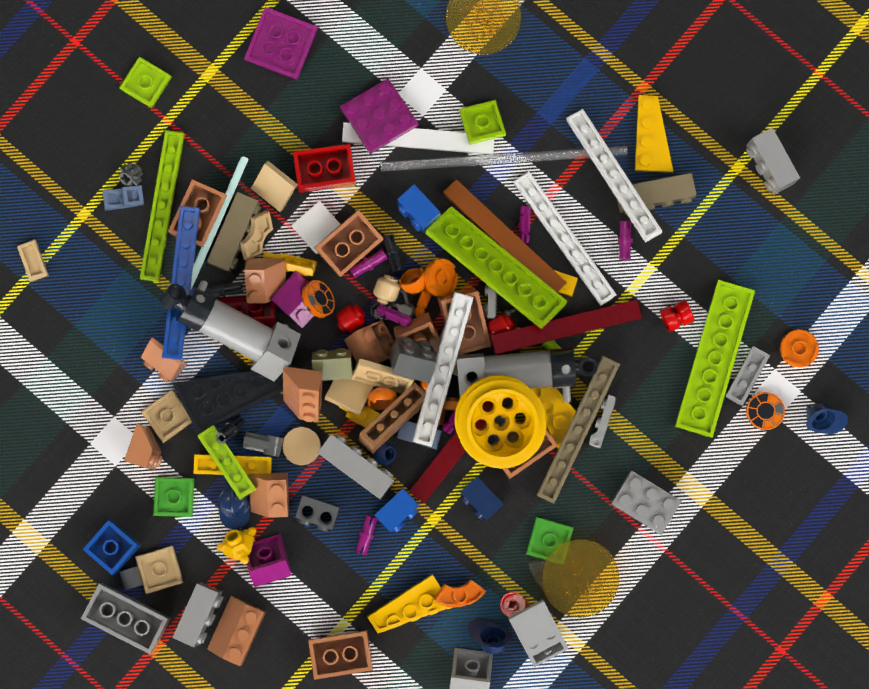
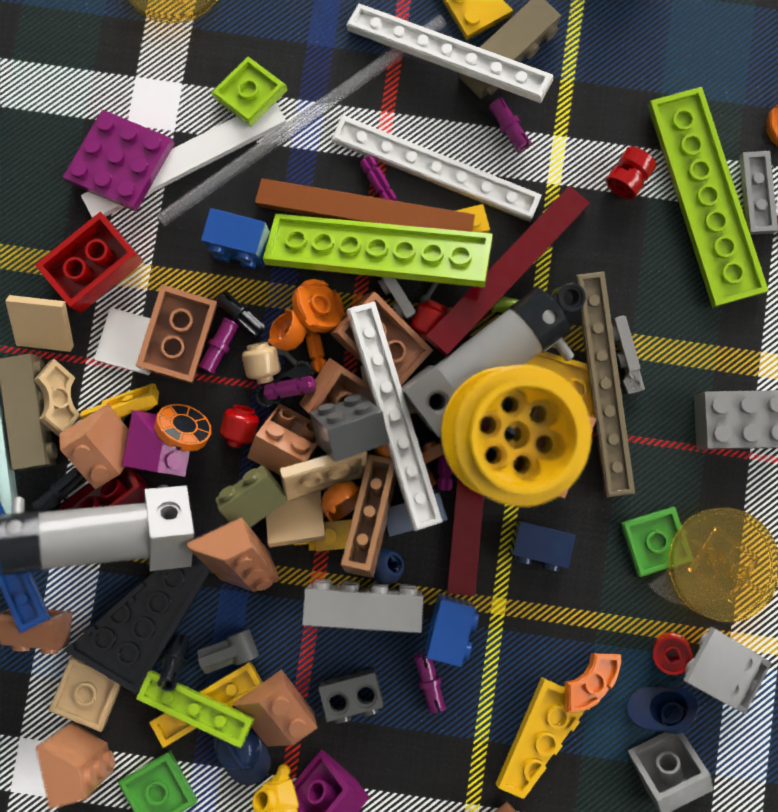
camera: 40 degrees left, 0 degrees up
(301, 446) = (278, 623): tan tile -> none

